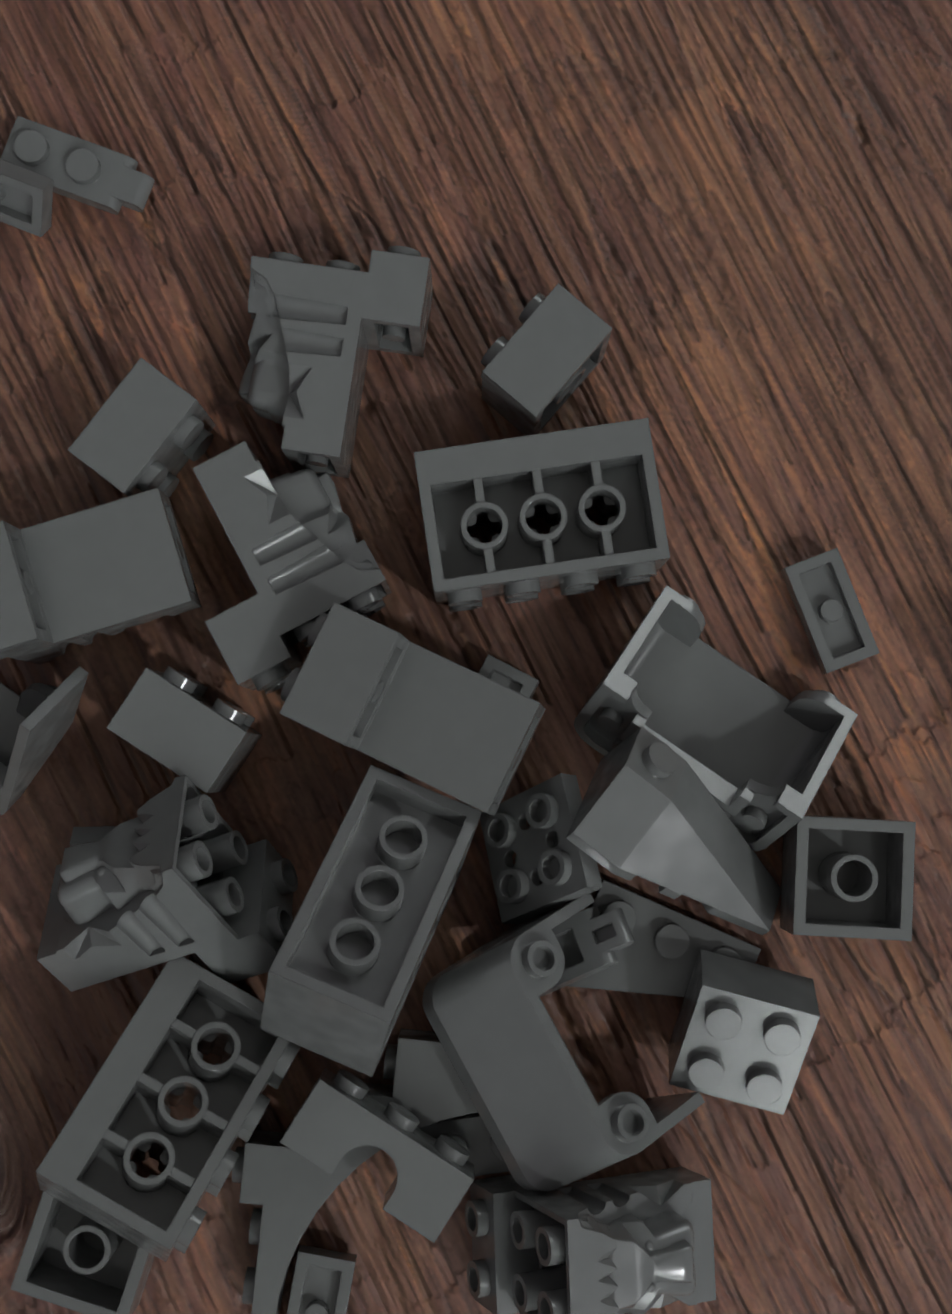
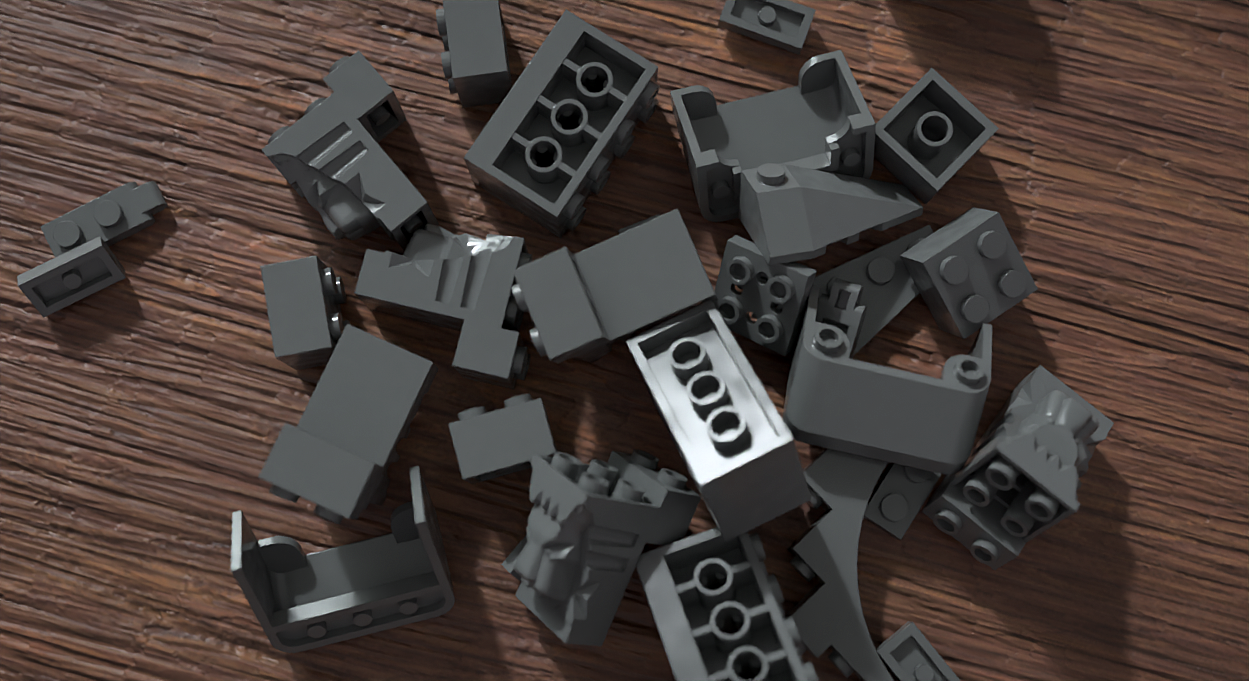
camera: 50 degrees left, 5 degrees down
(429, 1171) = (900, 526): dark grey arch -> none

